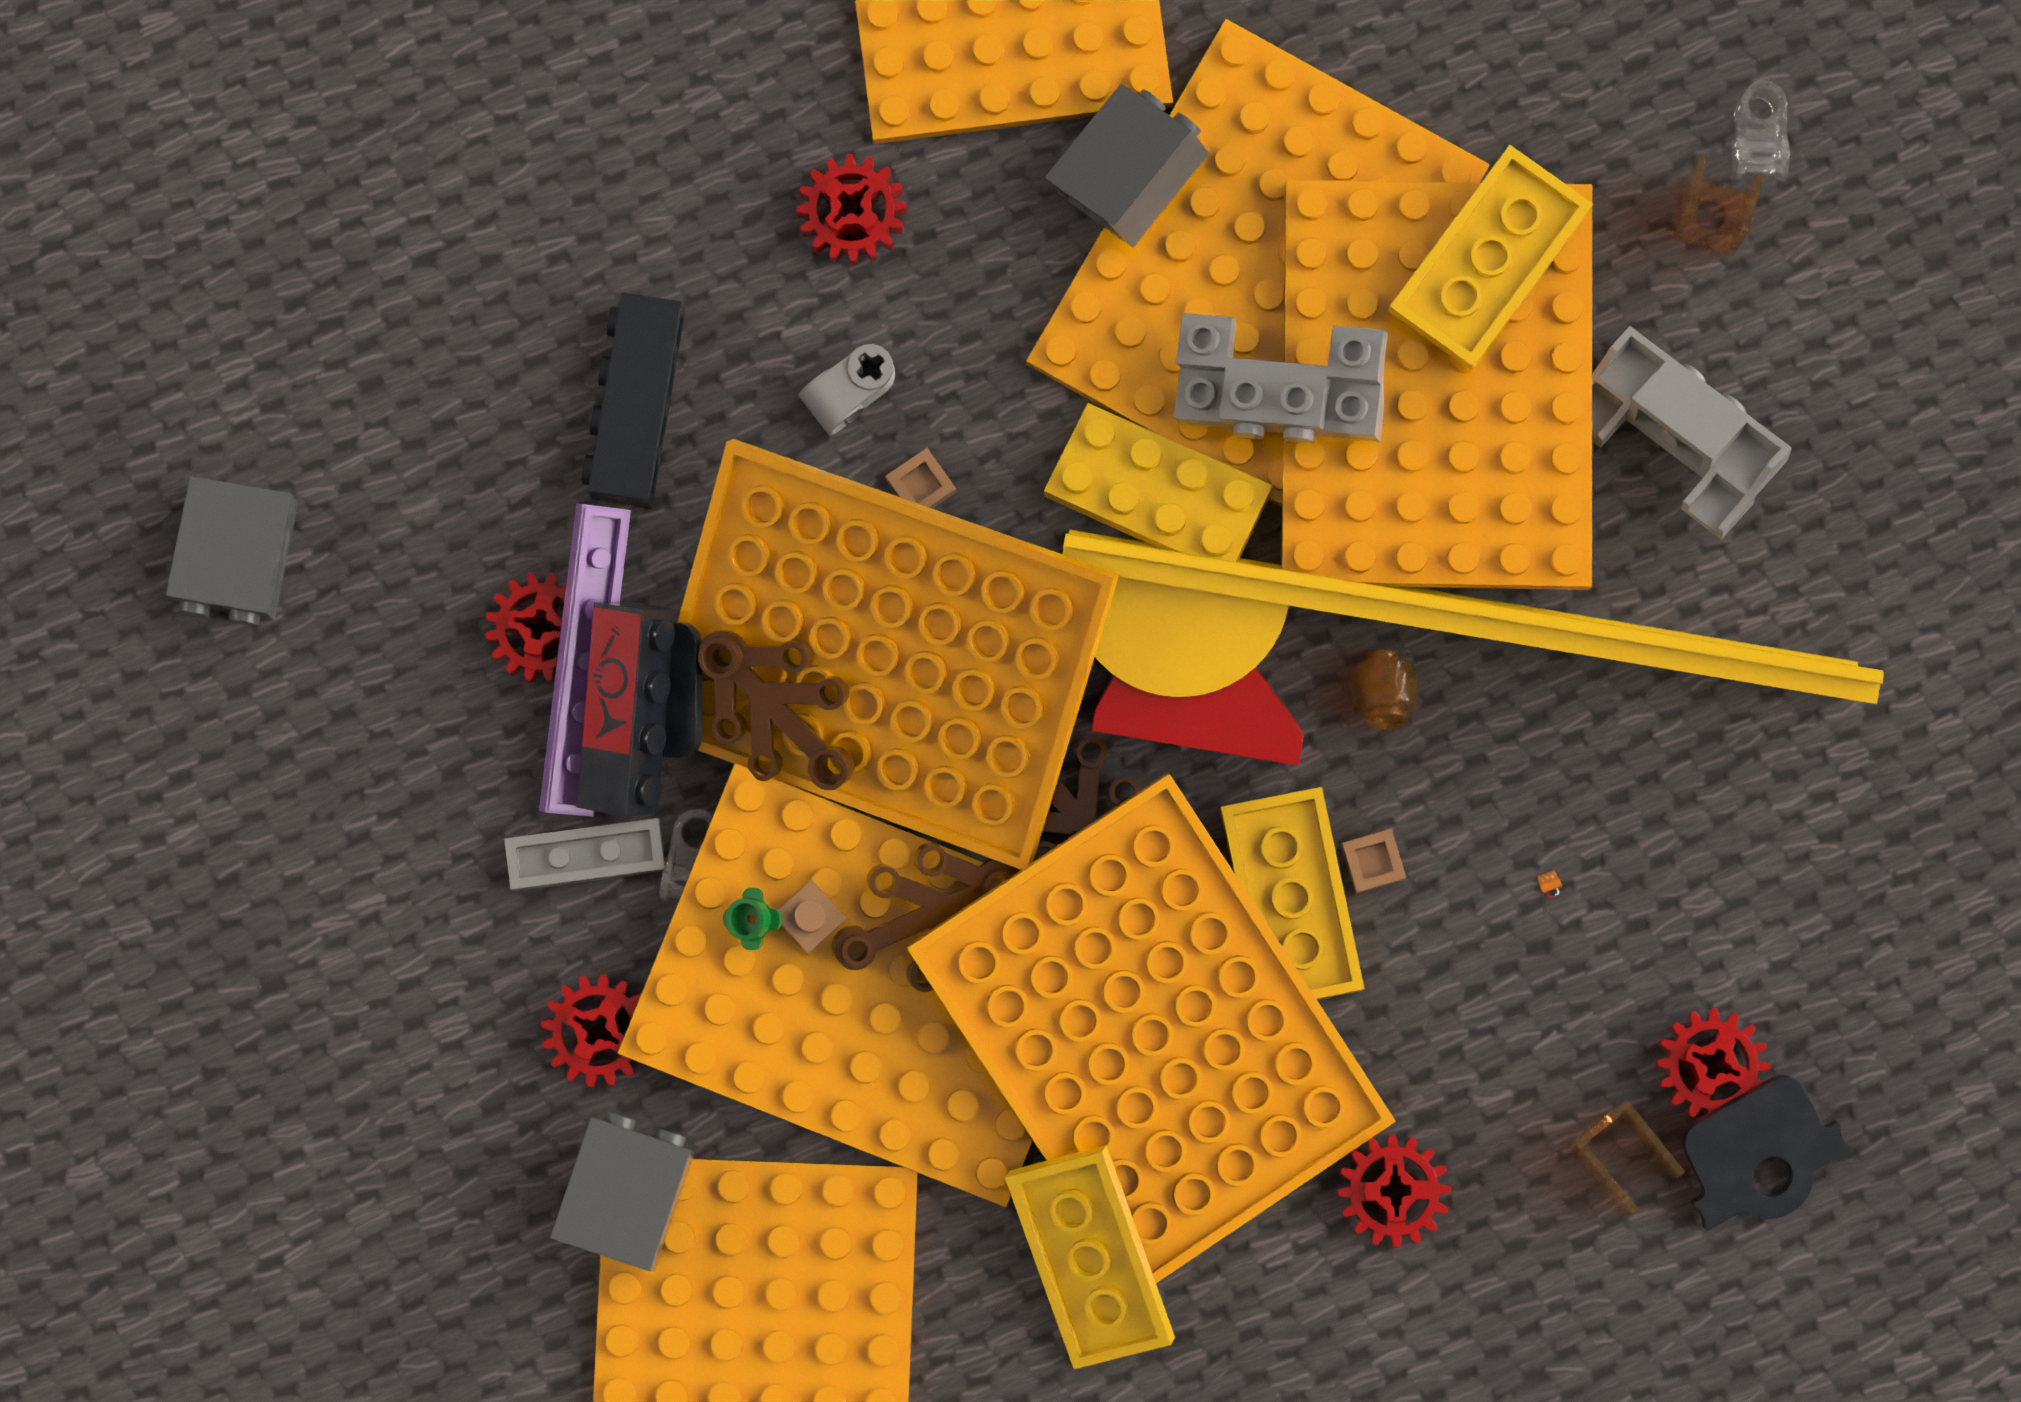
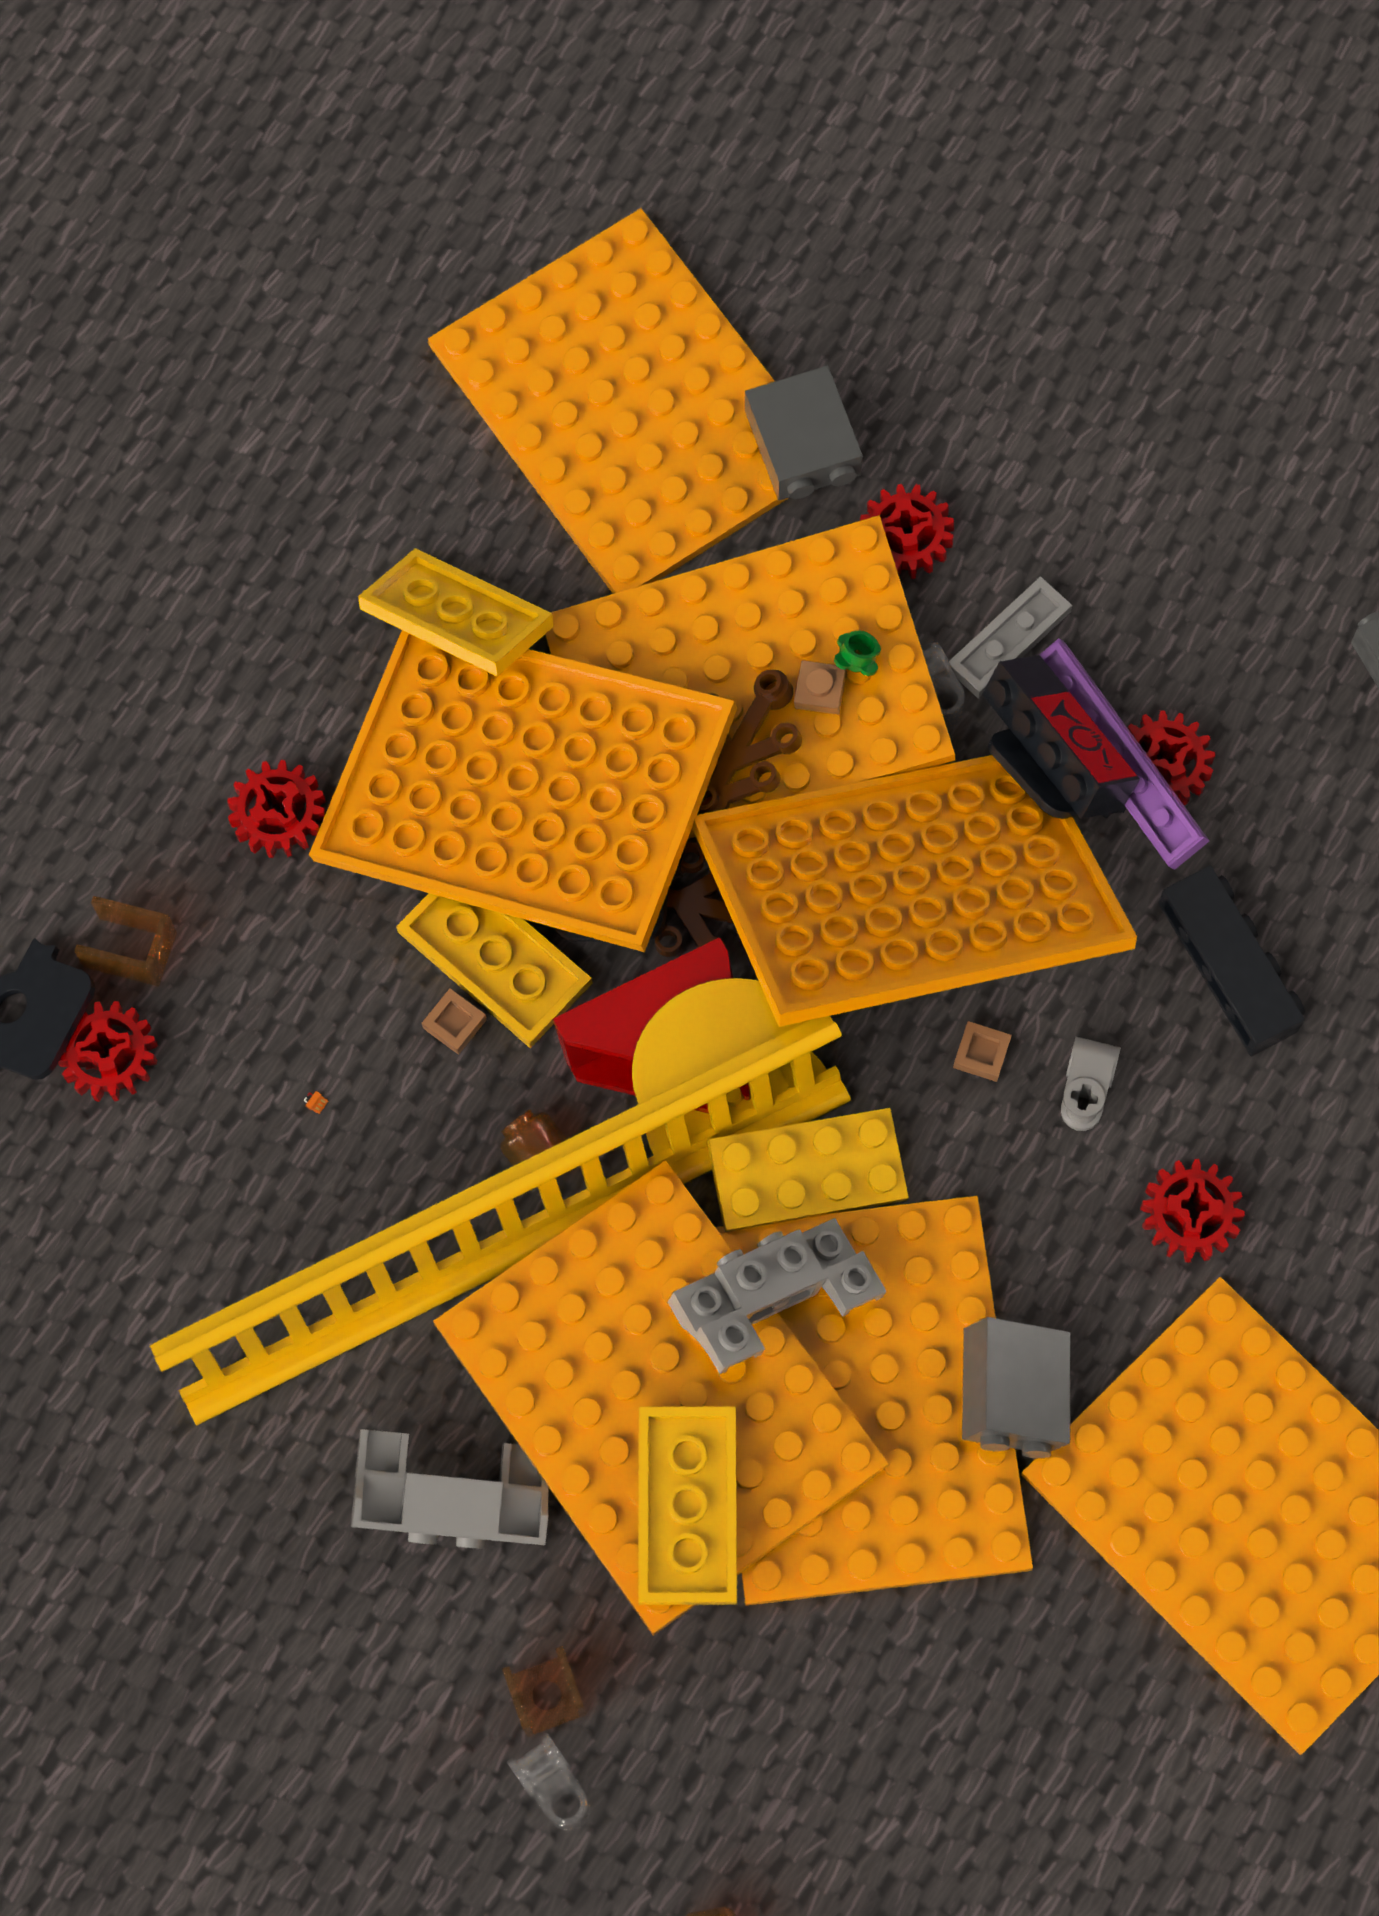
camera: 145 degrees right, 10 degrees down
(769, 704) = (1008, 808): reddish brown plant -> none

